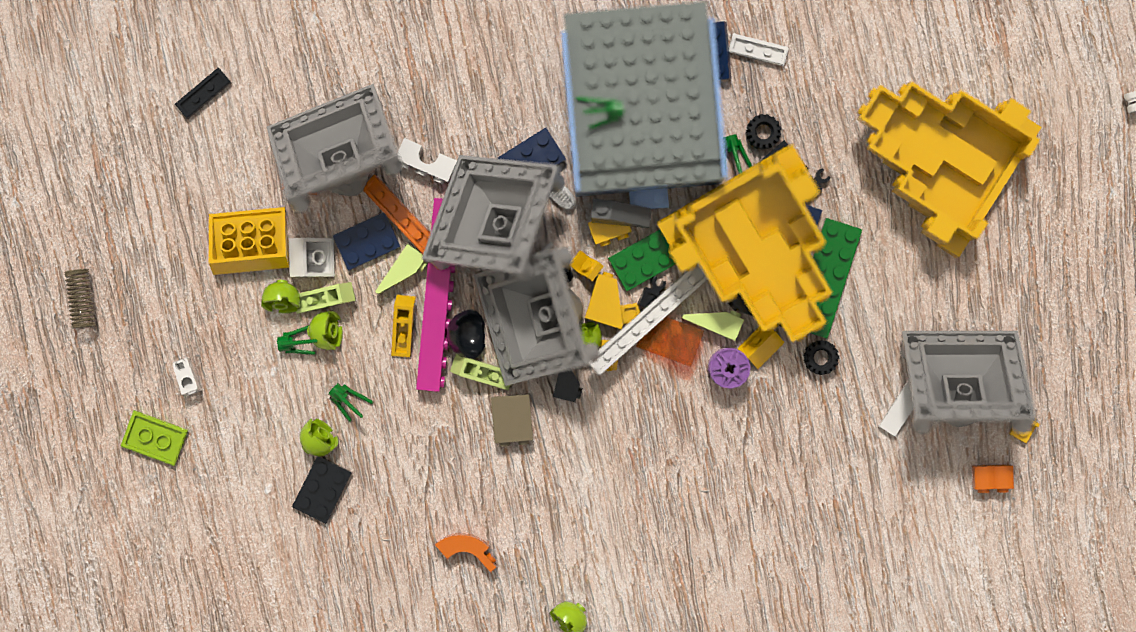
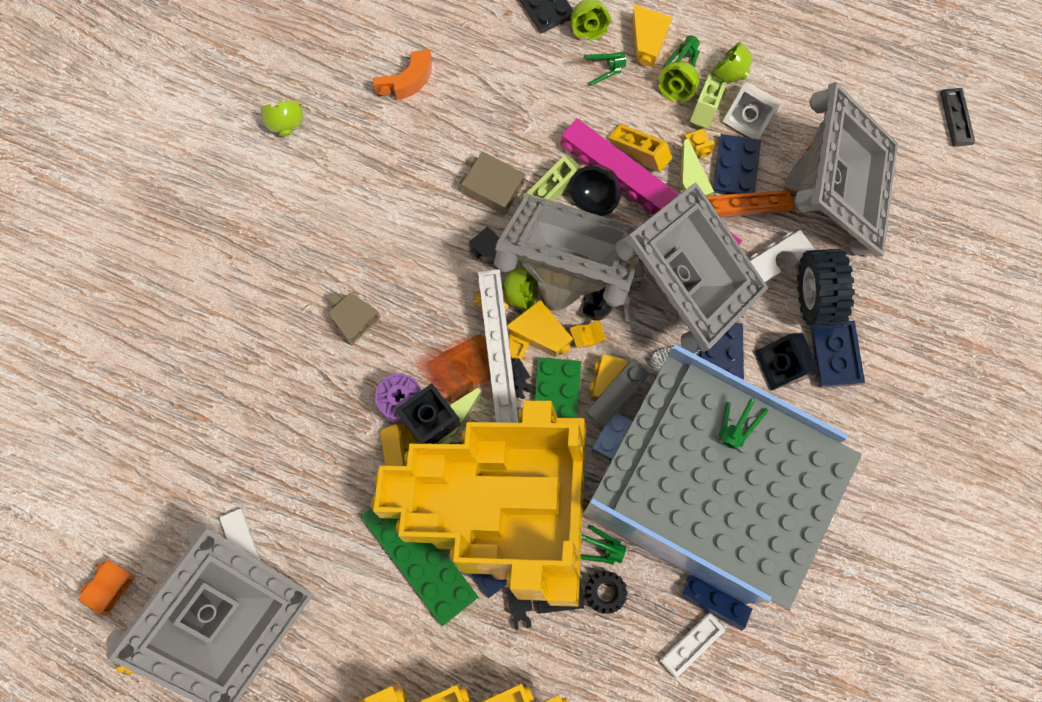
camera: 120 degrees right, 15 degrees down
(248, 241) = (799, 68): yellow slope -> none
(298, 381) = (649, 34): none -> yellow slope
(367, 282) = (700, 143): none -> yellow bracket
(436, 112) = (825, 287): none -> black wheel
(474, 73) = (837, 355): none -> dark blue plate
(505, 106) = (787, 361): none -> black slope
(689, 450) = (352, 316): none -> dark tan torso
(731, 336) = (428, 416): none -> black slope
(832, 360) = (333, 497): black tyre -> none

